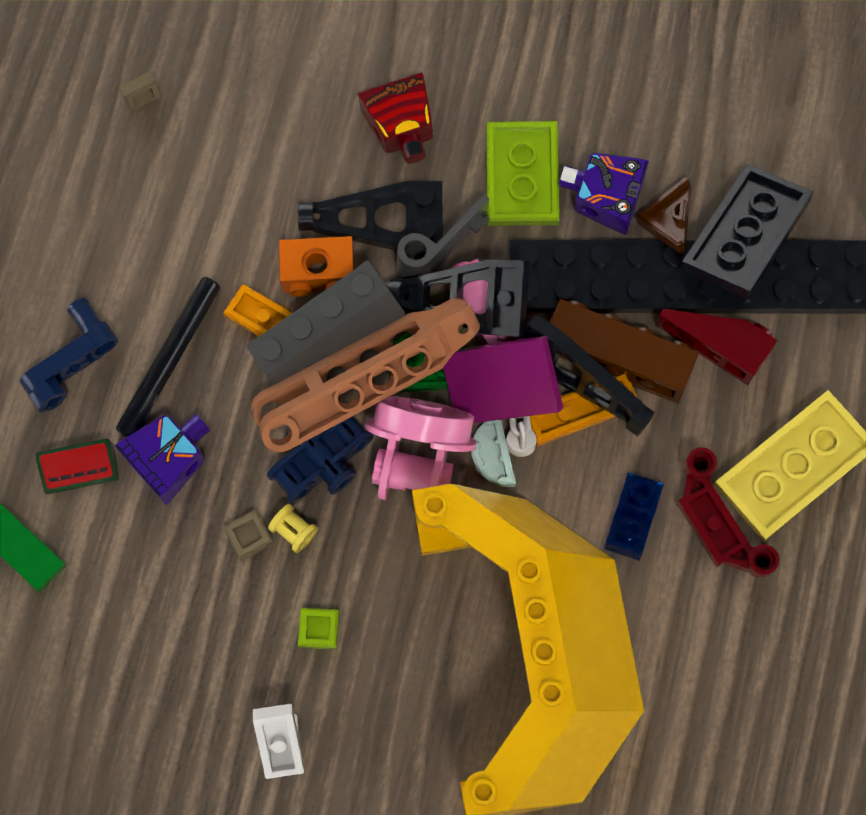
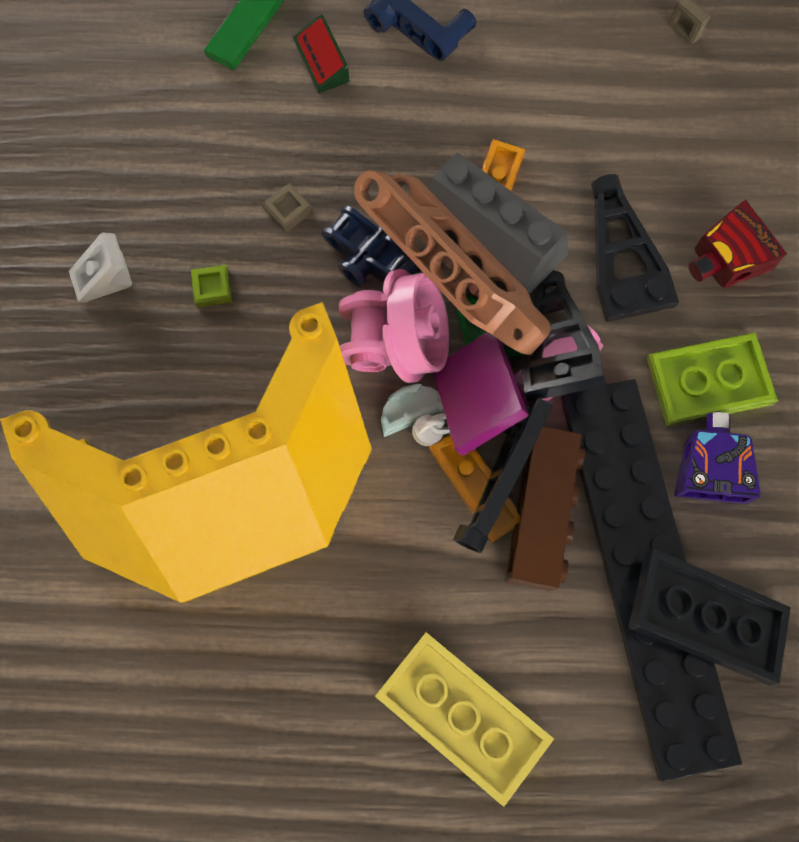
camera: 75 degrees right, 0 degrees up
(165, 454) = (344, 118): dark purple torso -> none
(168, 357) = (439, 104): black axle -> none
(287, 517) = (298, 240): light yellow bush -> none
(301, 254) = (561, 187): orange brick -> none
(421, 256) = (589, 294): dark grey door -> none
(633, 516) = (375, 556): clear blue slope -> none
(669, 216) = (707, 533): reddish brown tile -> none
(715, 524) = (382, 640): dark red plate -> none
(726, 342) = (581, 620): dark red slope -> none

